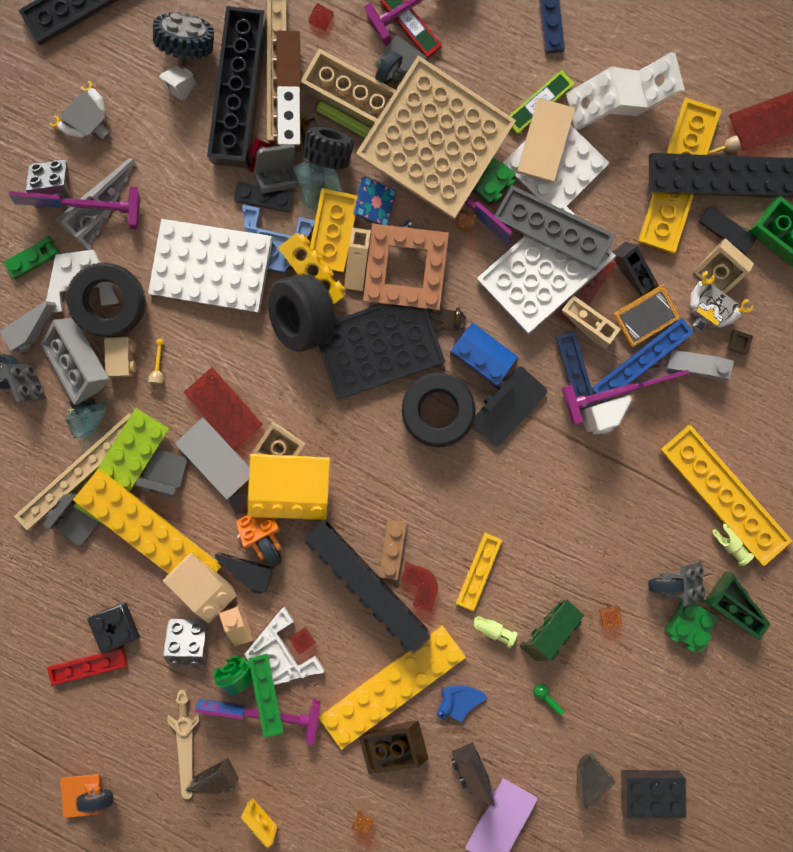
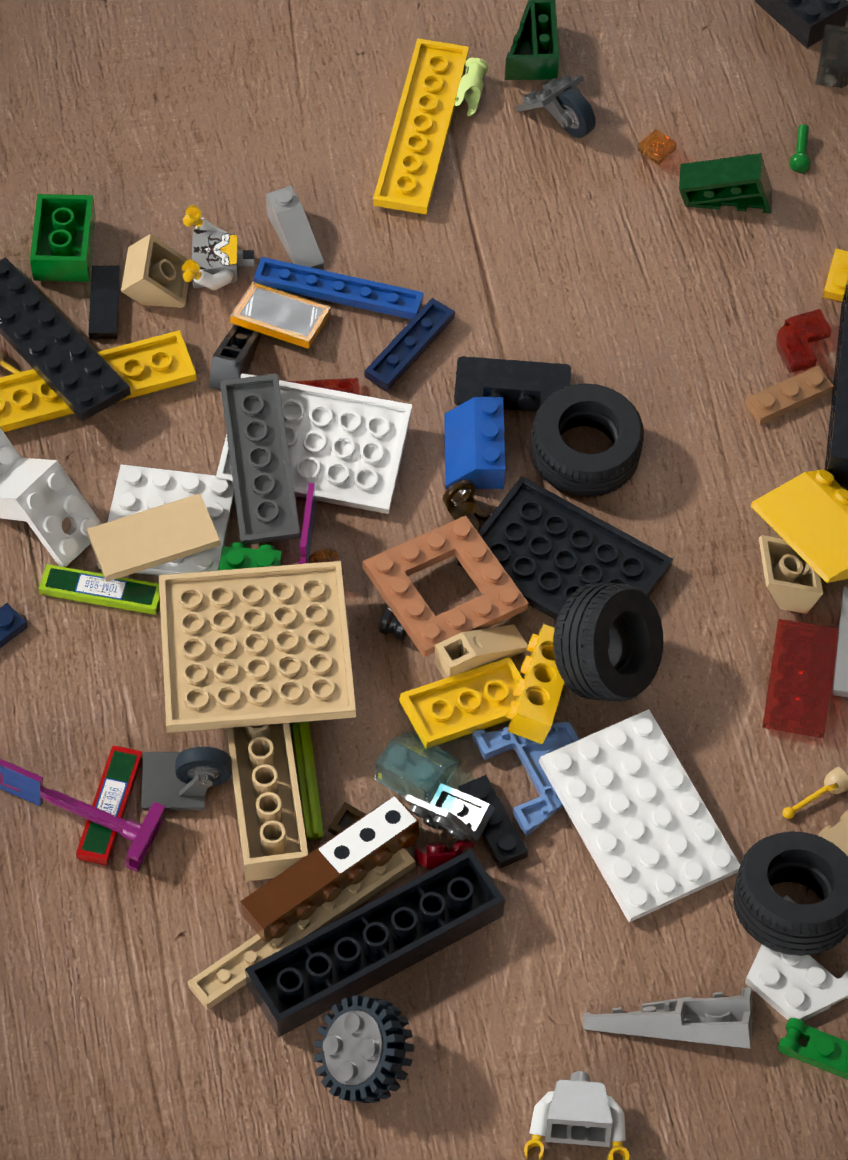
camera: 130 degrees left, 30 degrees down
(48, 179) = (706, 1102): dark grey bracket -> none
(55, 201) = (652, 965): magenta piece -> none
(178, 82) = (430, 1022): white slope -> none
(321, 17) = (187, 920): clear red plate -> none
(328, 147) = (369, 764): black tyre -> none
(374, 201) = (391, 677): tile -> none
(478, 572) = (729, 297): yellow tile -> none
(495, 631) = (778, 238): yellowish green piece -> none
(575, 403) = (361, 260): magenta piece -> none
(591, 322) = (341, 352): tan slope -> none
(604, 416) = (440, 267): white slope -> none
(692, 626) = (599, 70): green plate -> none
(740, 342) = (233, 211): dark brown plate -> none

